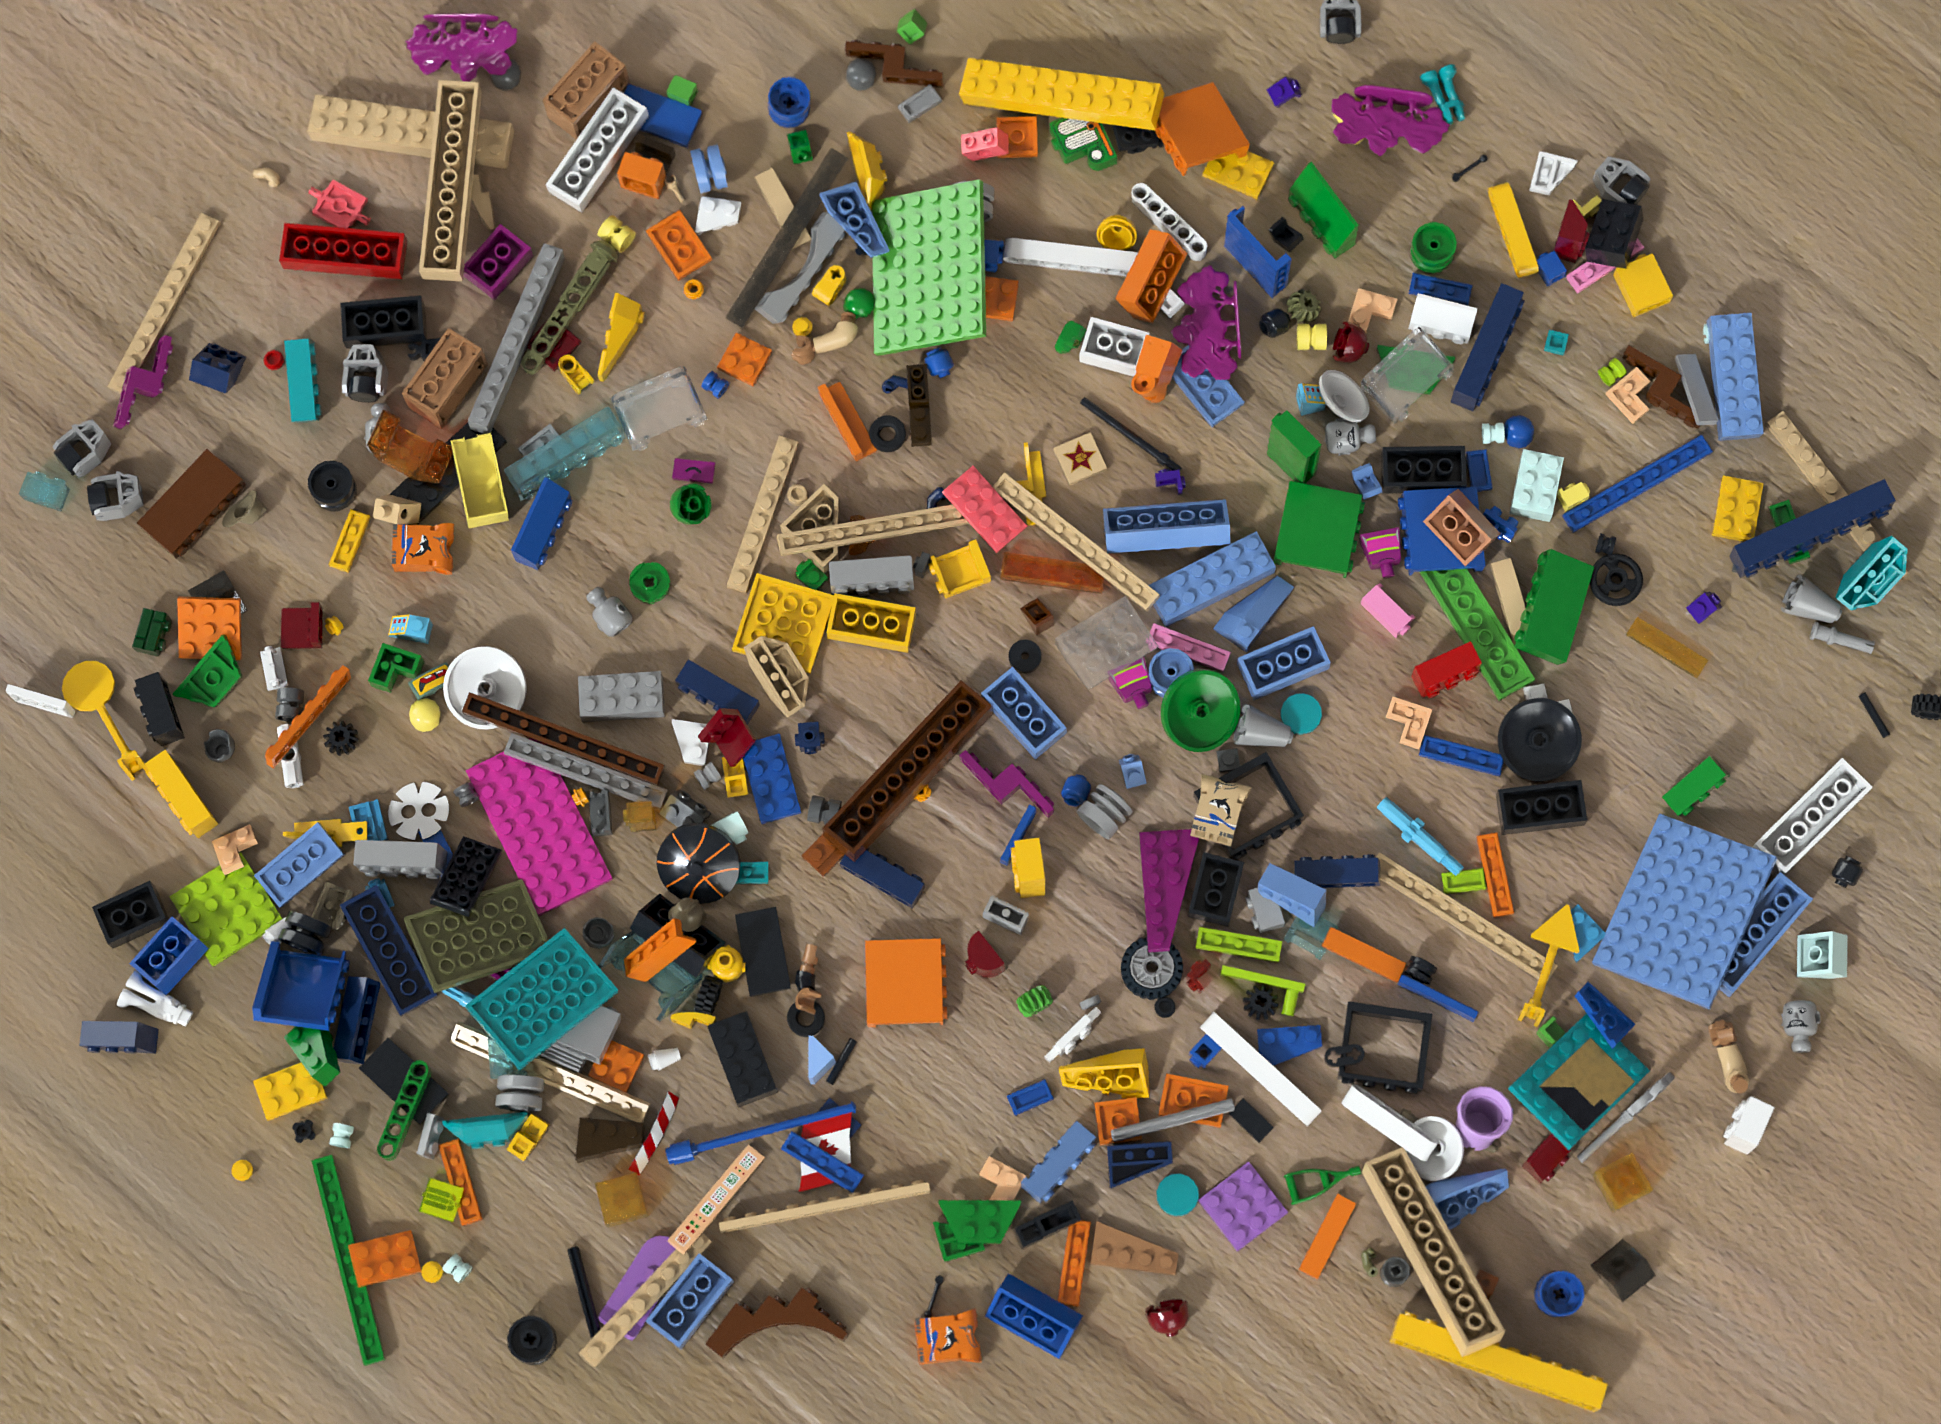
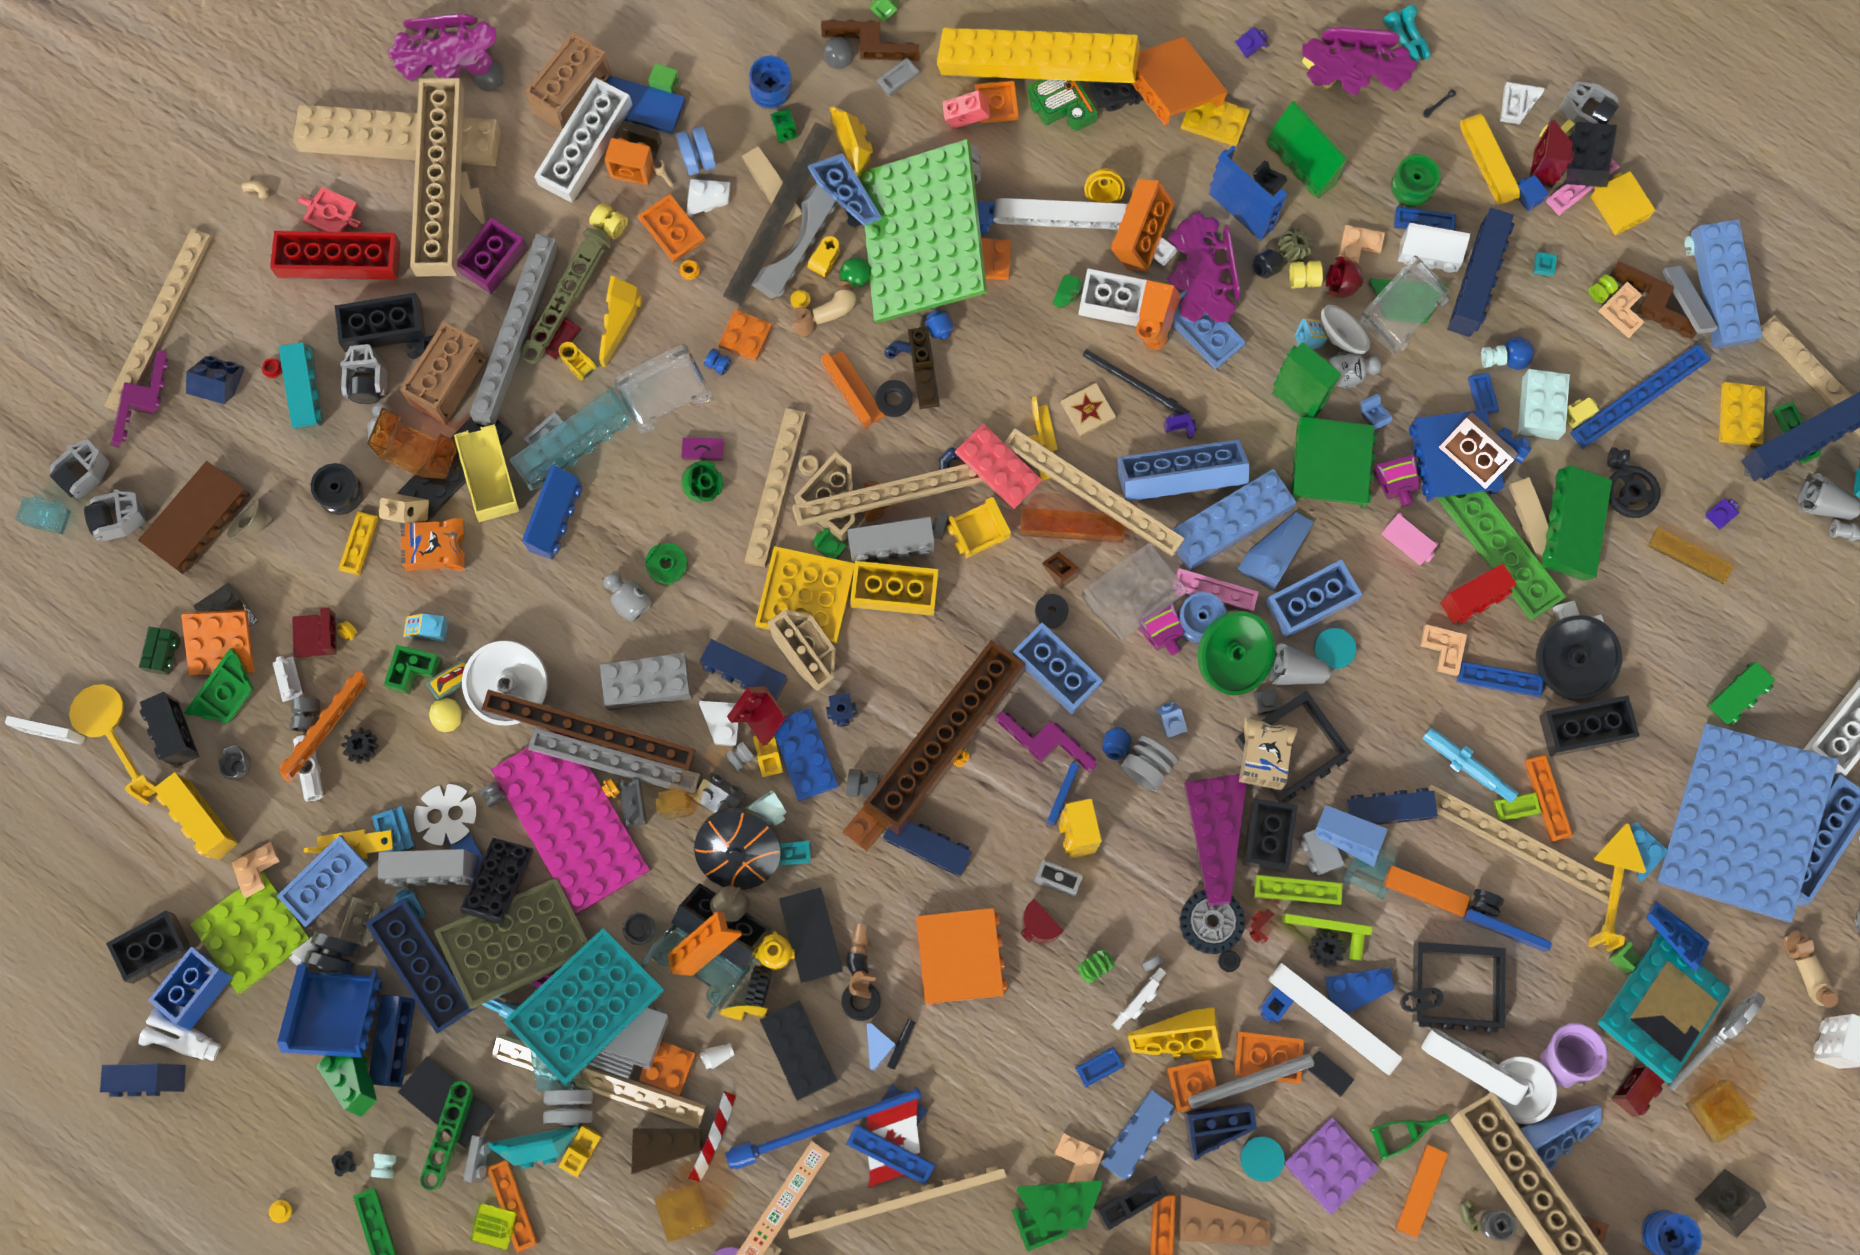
camera: 10 degrees left, 0 degrees up
(288, 1091) = (323, 1123): yellow plate -> none
(1164, 213) = (1150, 164): white beam -> none
(1422, 468) = (1430, 395): black brick -> none

